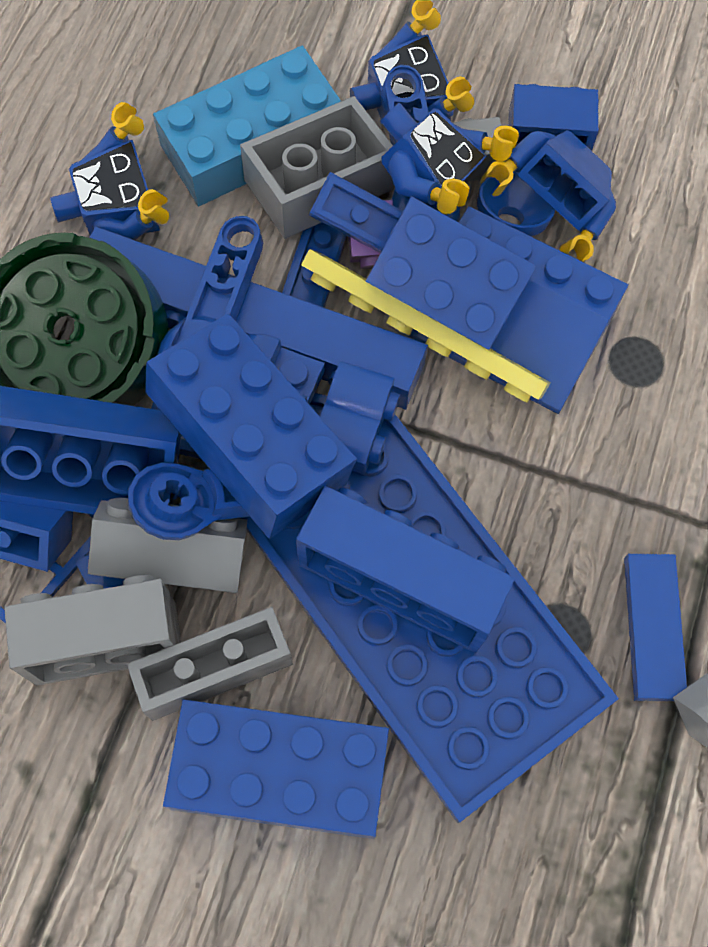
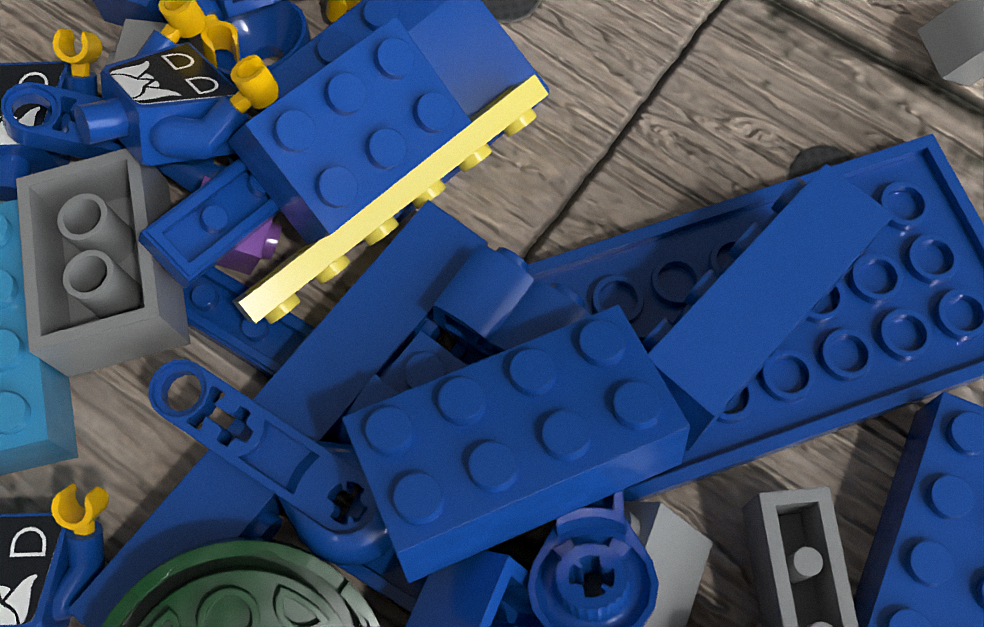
camera: 70 degrees left, 0 degrees up
(655, 626) = (846, 75): blue tile -> none

